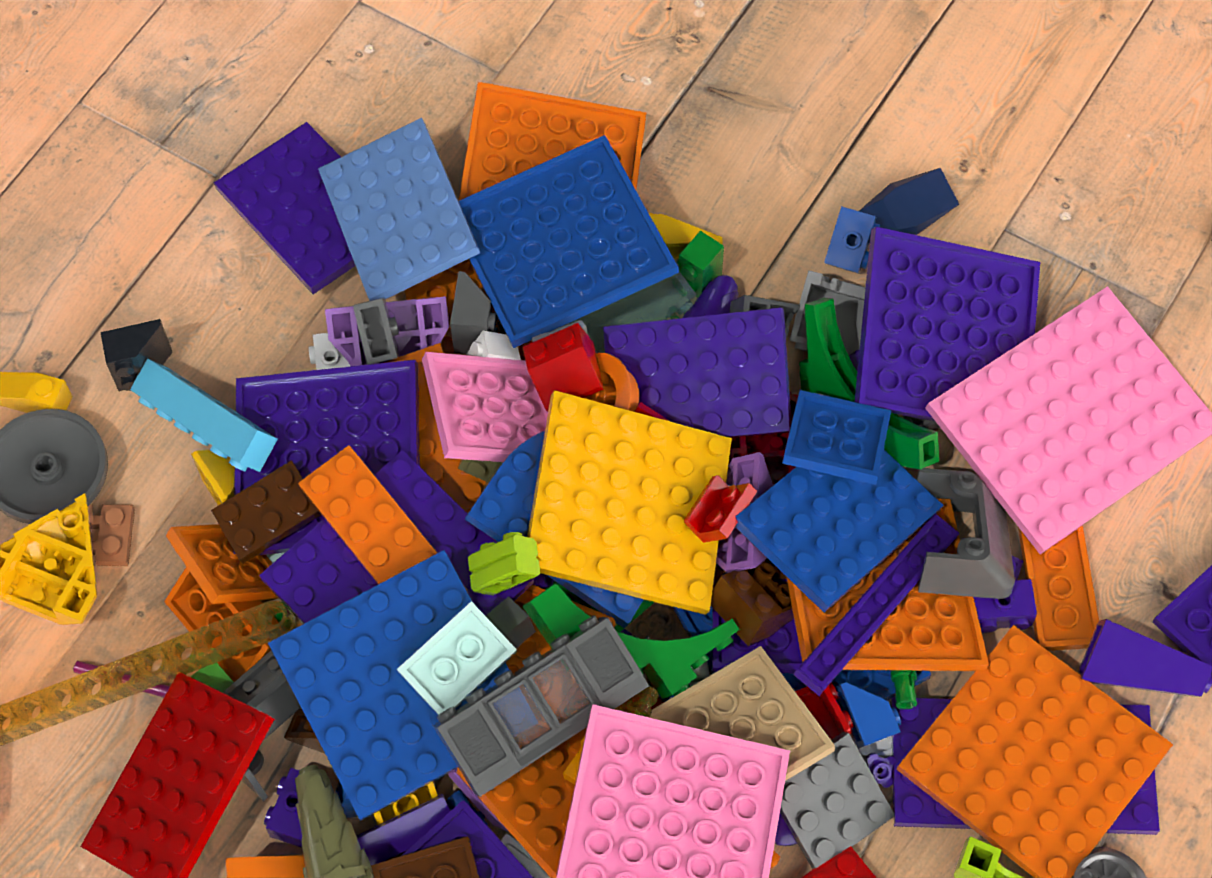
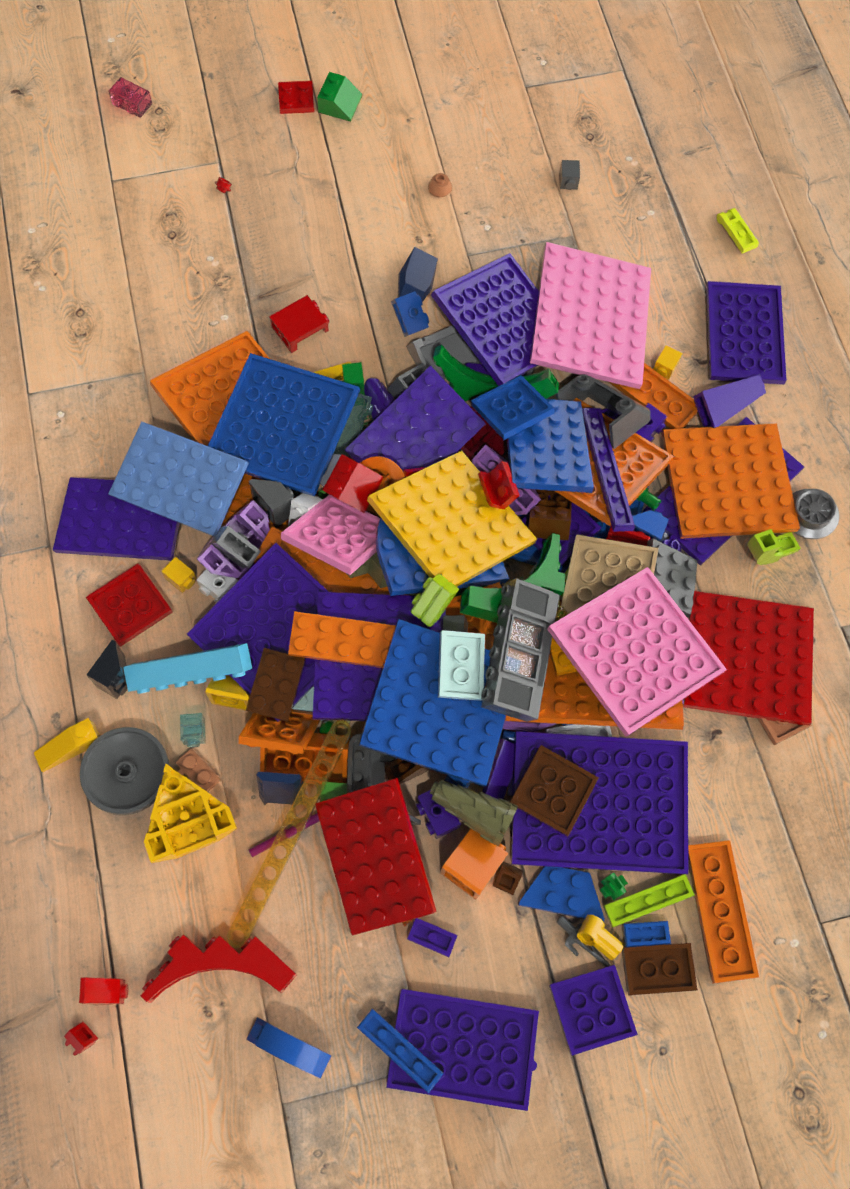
camera: 50 degrees left, 5 degrees up
(152, 487) = (192, 729): none -> clear light blue brick
(163, 619) = (278, 787): none -> dark blue slope
(226, 304) = (129, 604): none -> red plate
(305, 315) = (179, 575): none -> yellow brick
(717, 149) = (298, 322): none -> red panel
(1055, 122) = (440, 185): none -> nougat cone
(1114, 554) = (667, 362): none -> yellow brick

